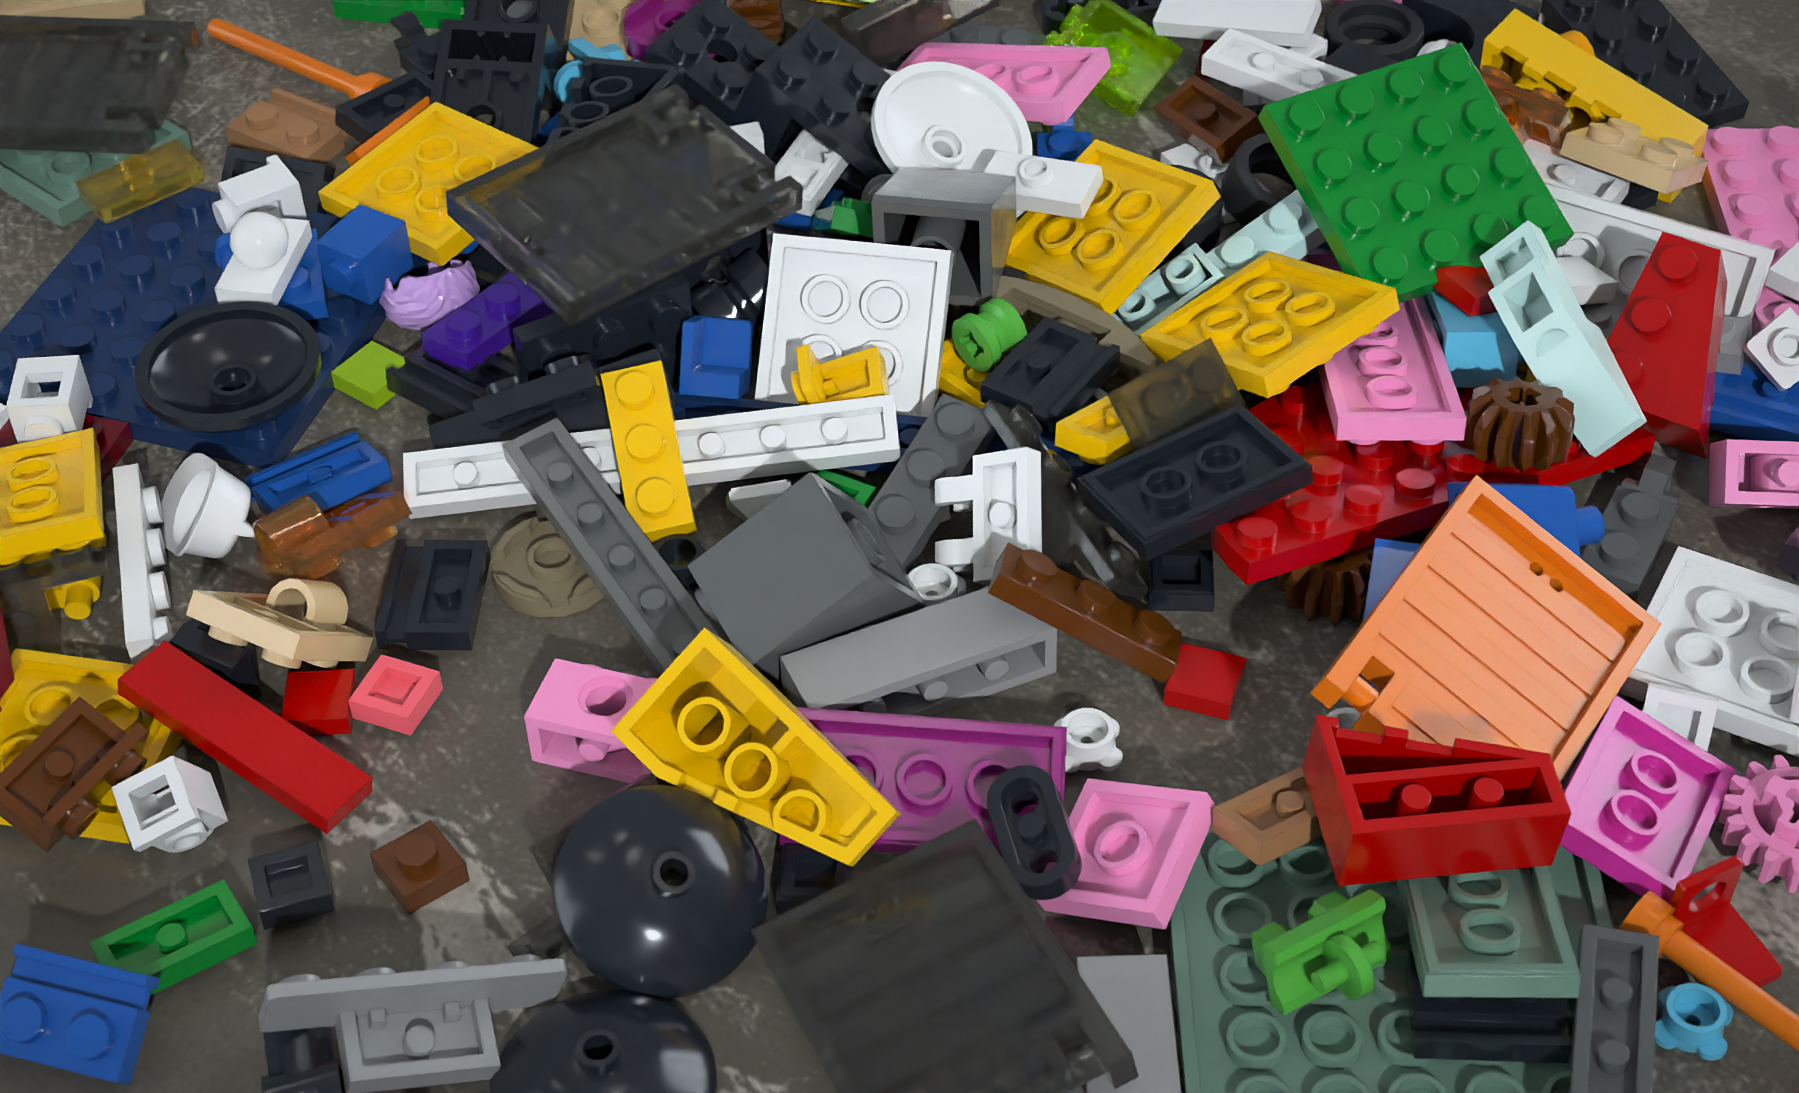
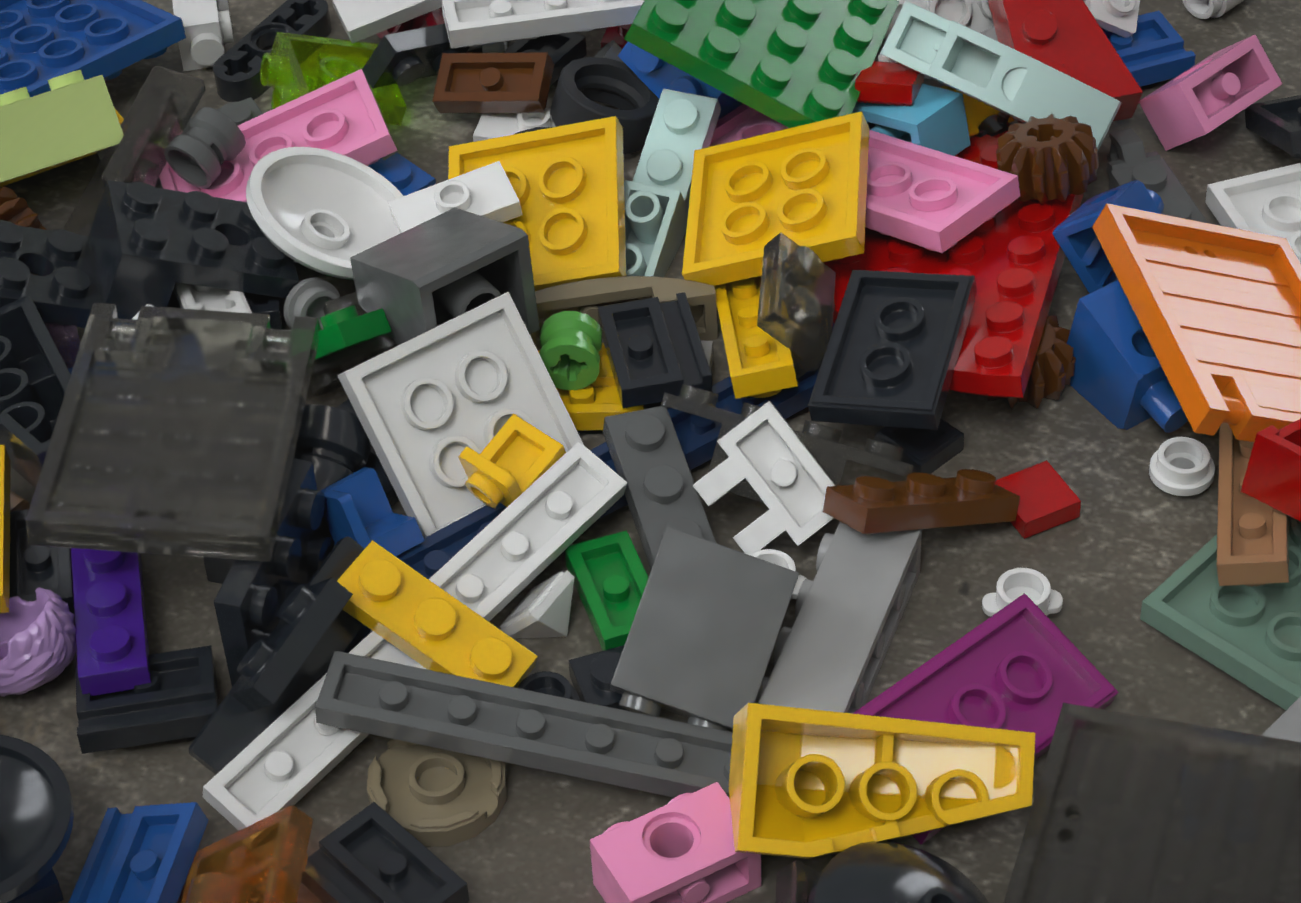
camera: 45 degrees left, 0 degrees up
(365, 374) = (56, 738): lime tile -> none
(807, 875) = (978, 849): black tile -> none
(951, 36) = (205, 147): none -> dark grey wheel
(1036, 836) = (1114, 676): black plate -> none
(1133, 851) = (1176, 646): bright pink plate -> none
(1170, 62) = (408, 56): none -> black plate

